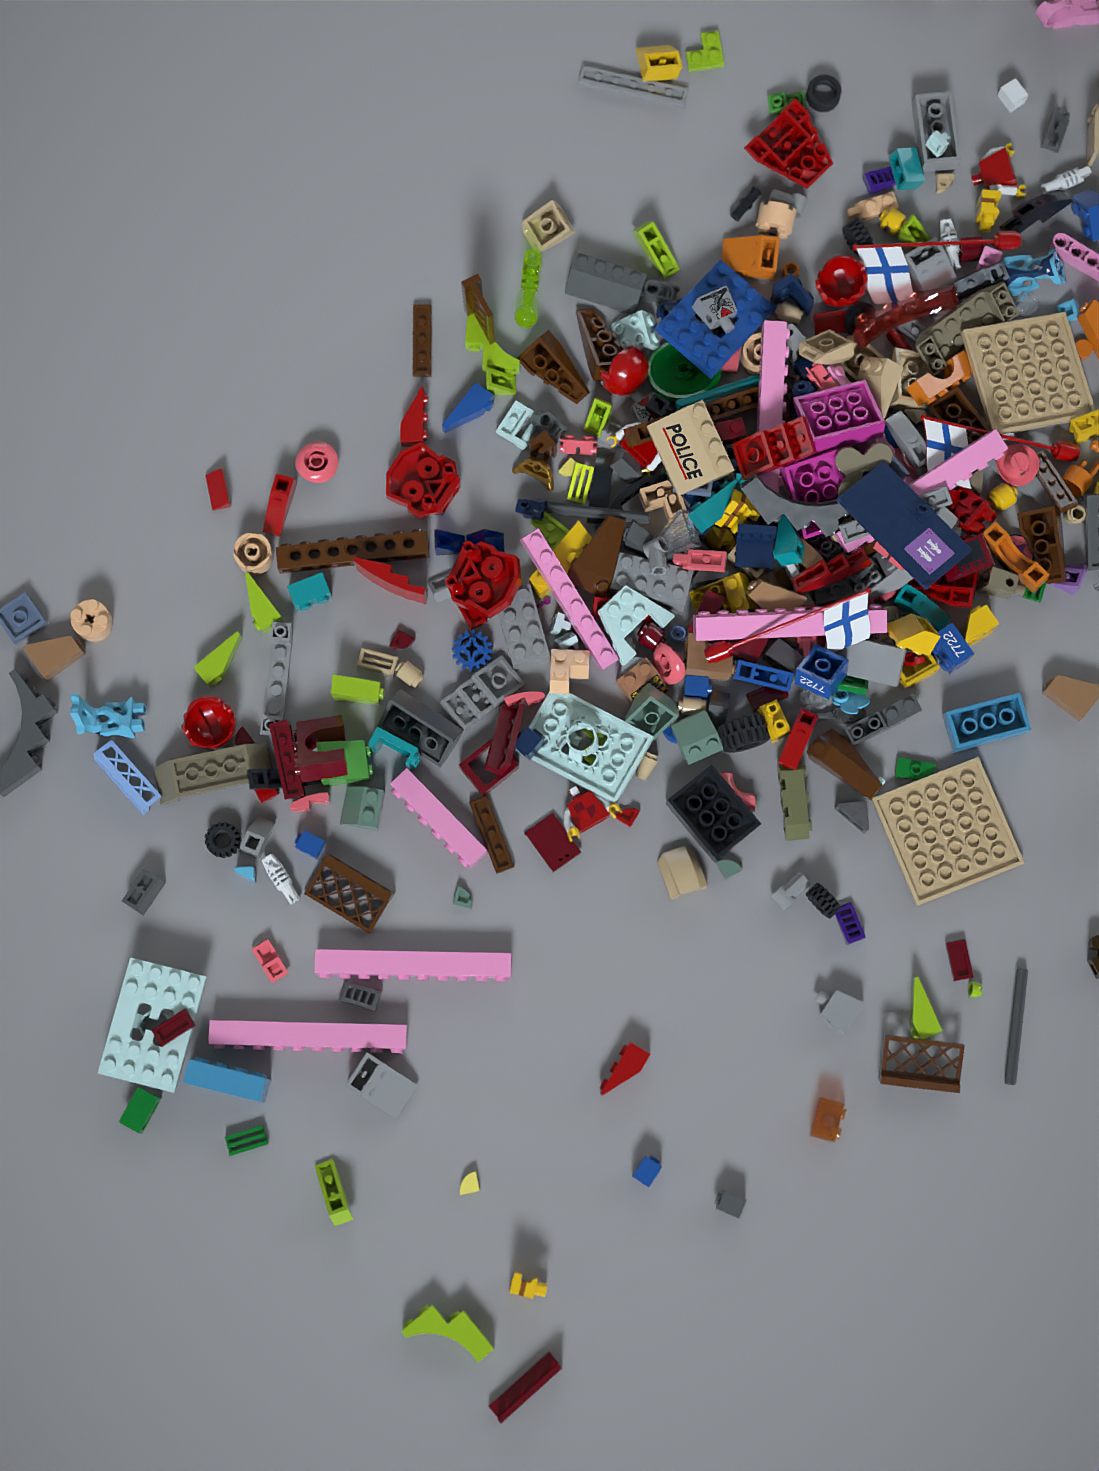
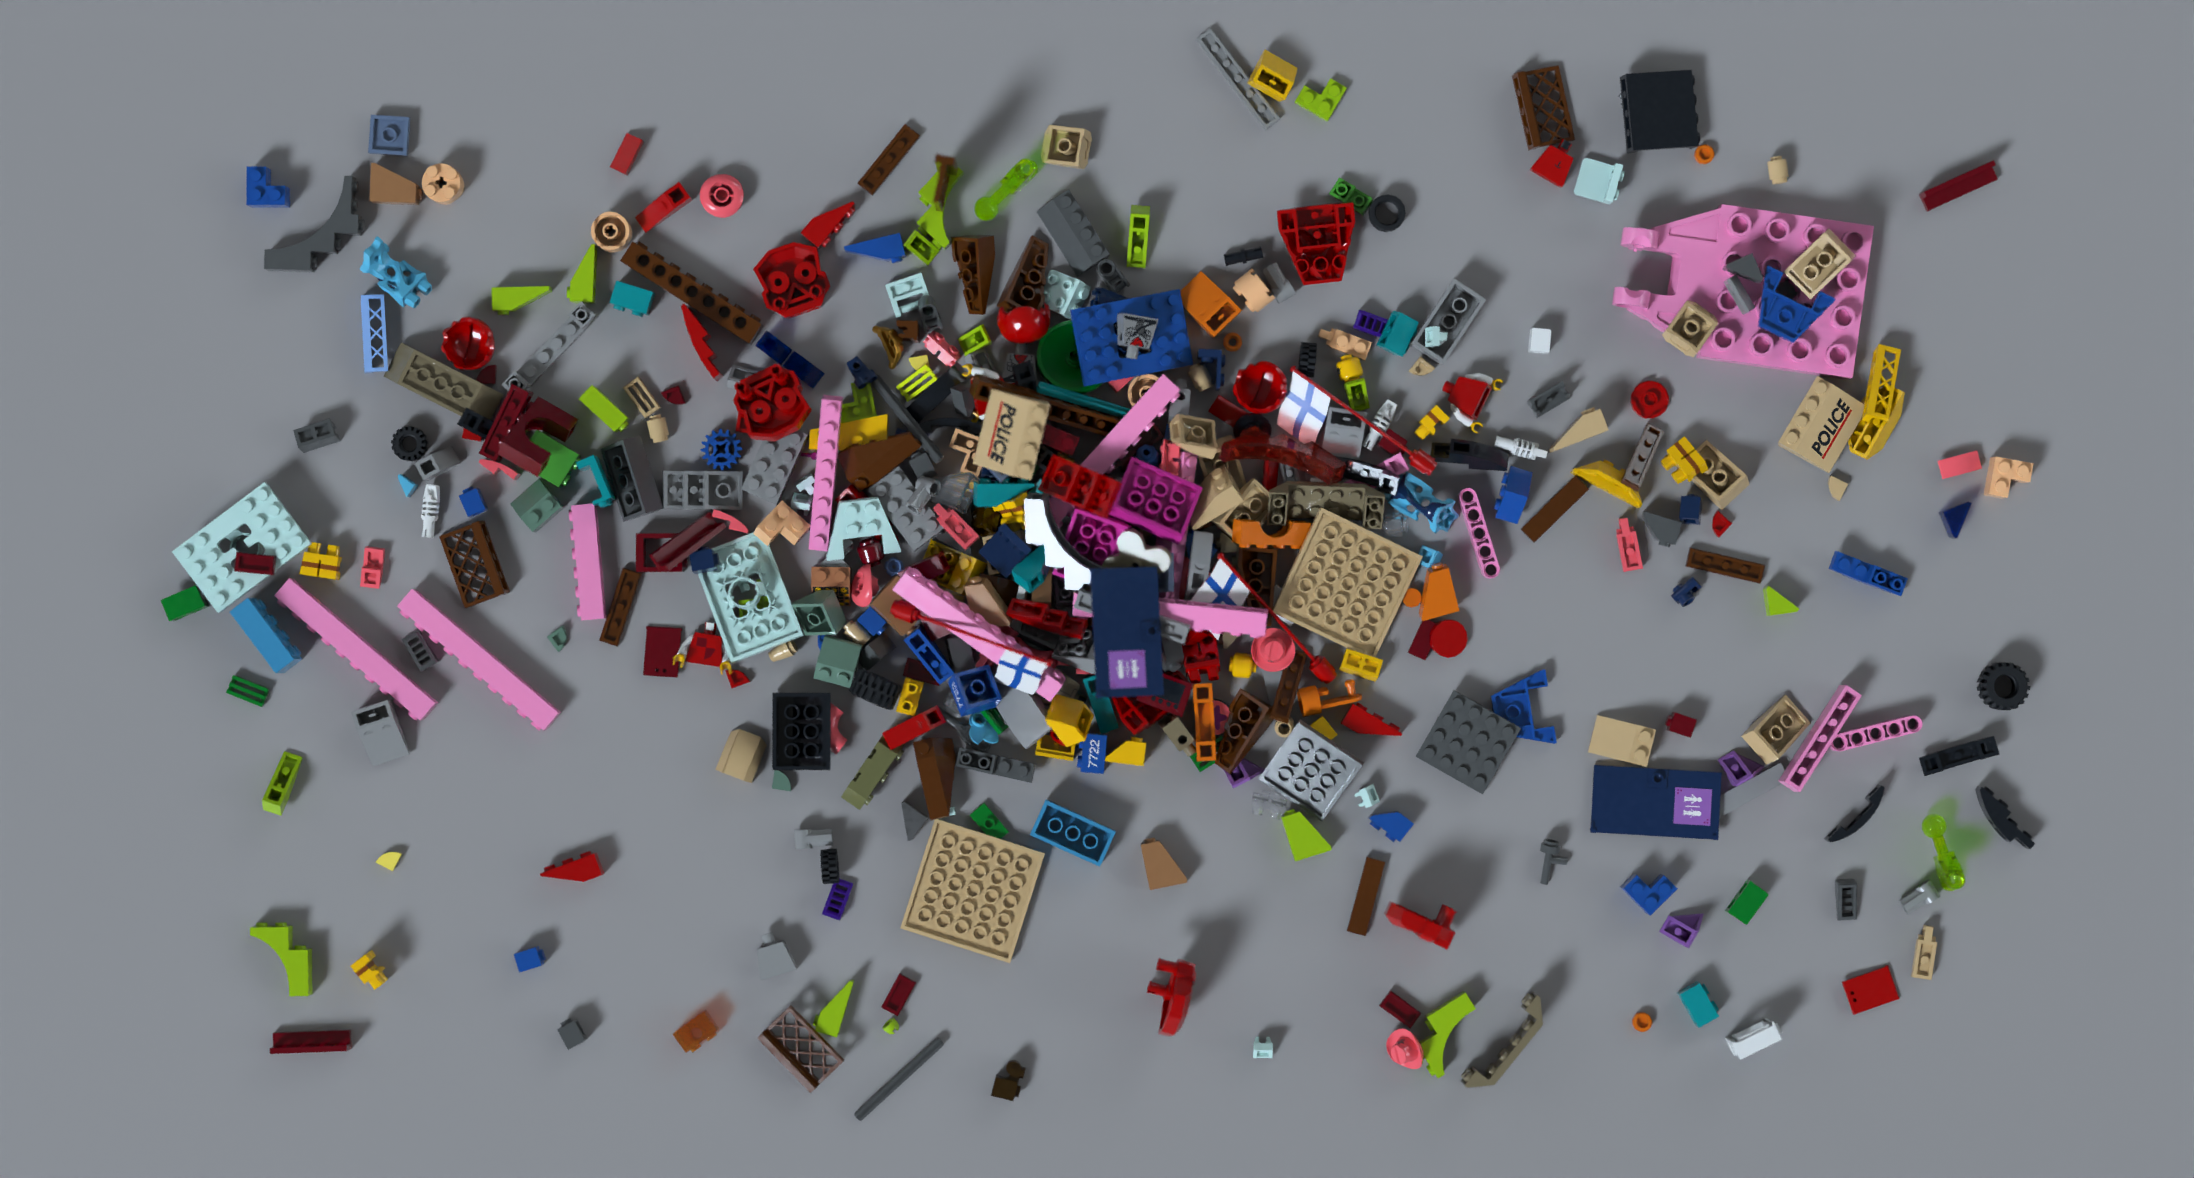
camera: 35 degrees right, 10 degrees up
(233, 984) = (319, 564): none -> yellow hips

